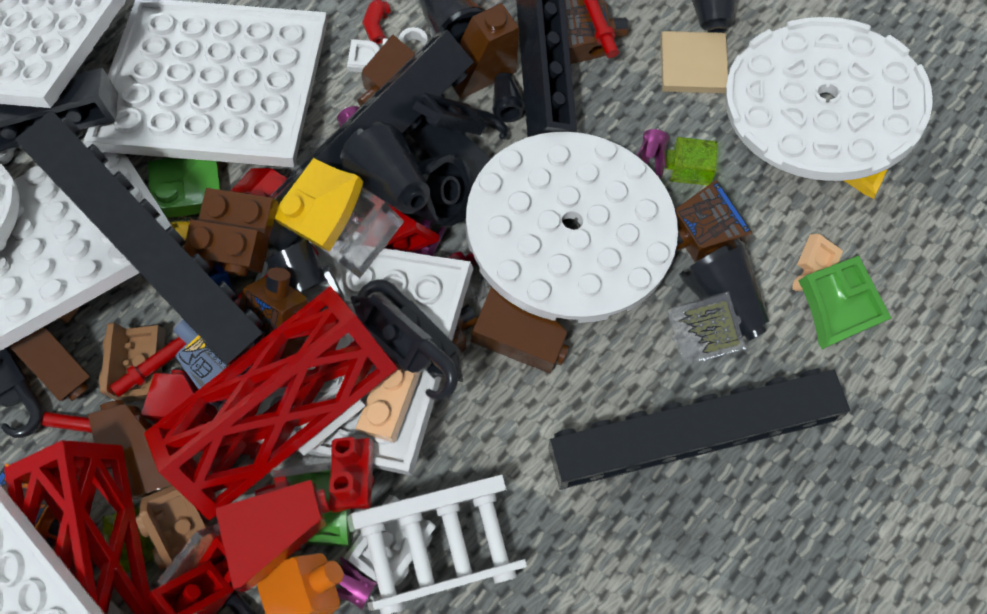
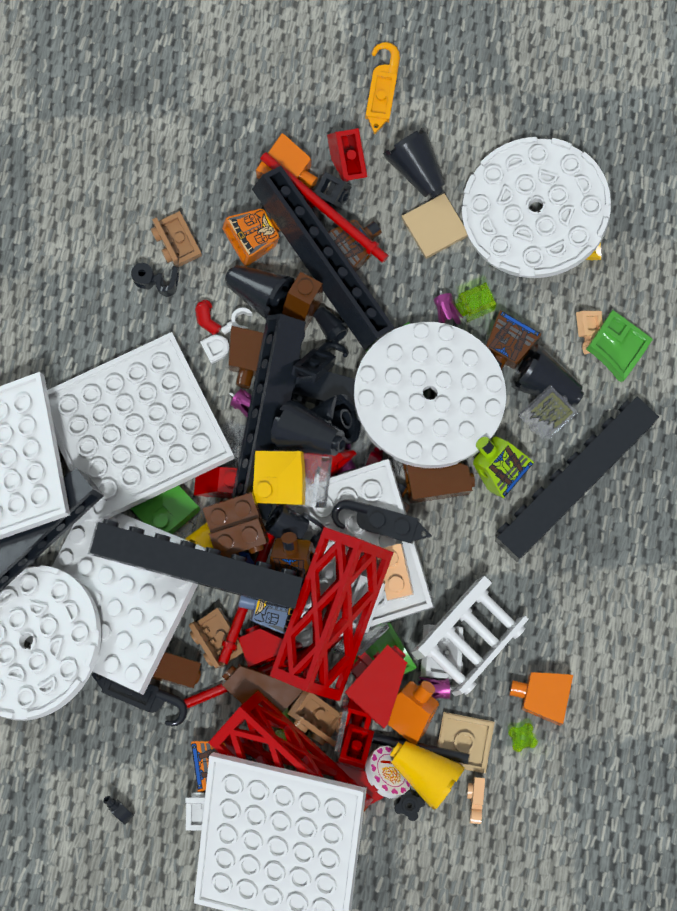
camera: 30 degrees left, 10 degrees up
(351, 474) = (401, 627): red hips -> none
(404, 341) = (385, 533): black plate -> none
(609, 353) = (500, 465): none -> lime torso

